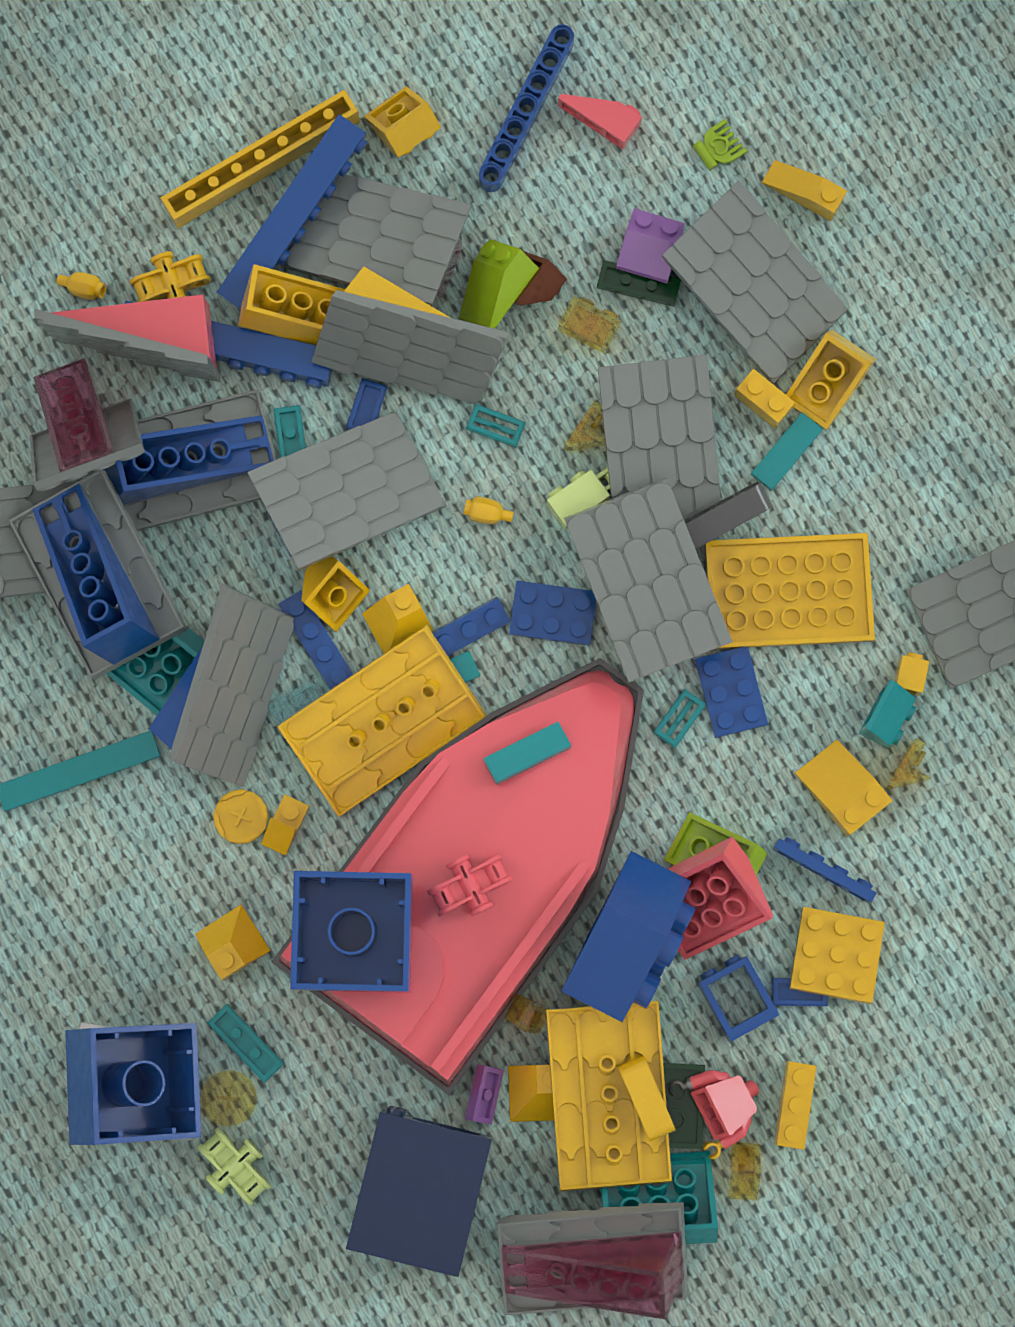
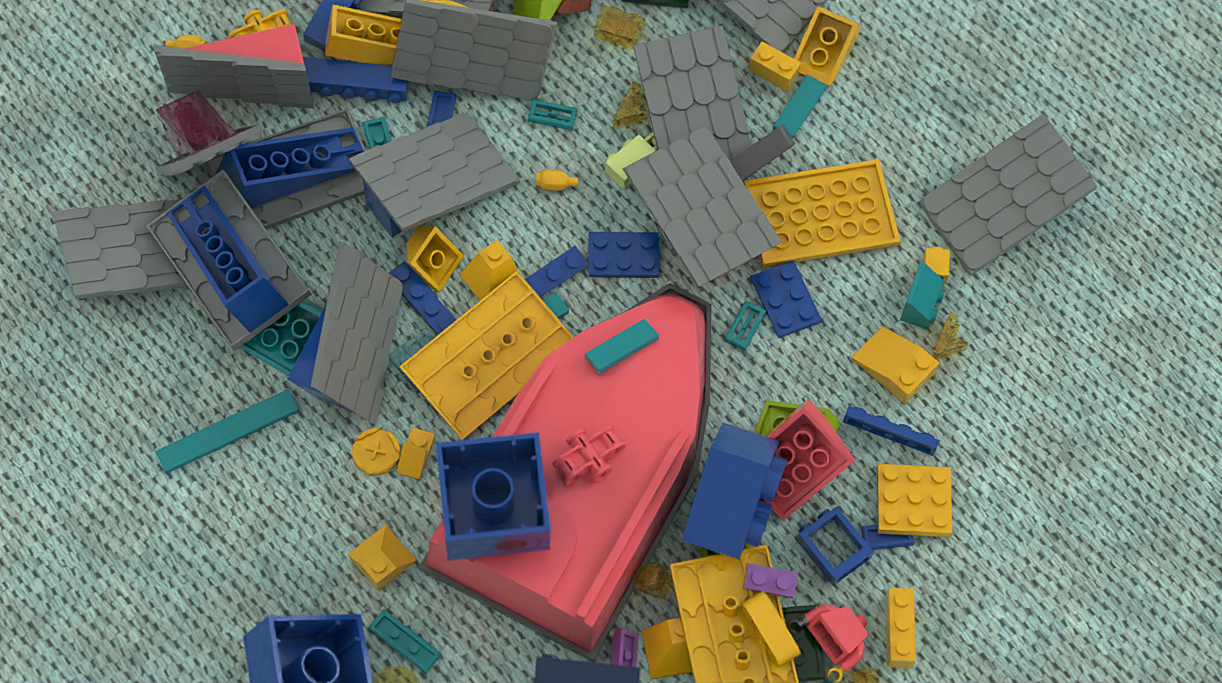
camera: 10 degrees left, 15 degrees down
(655, 1043) = (770, 580): none -> medium lavender plate

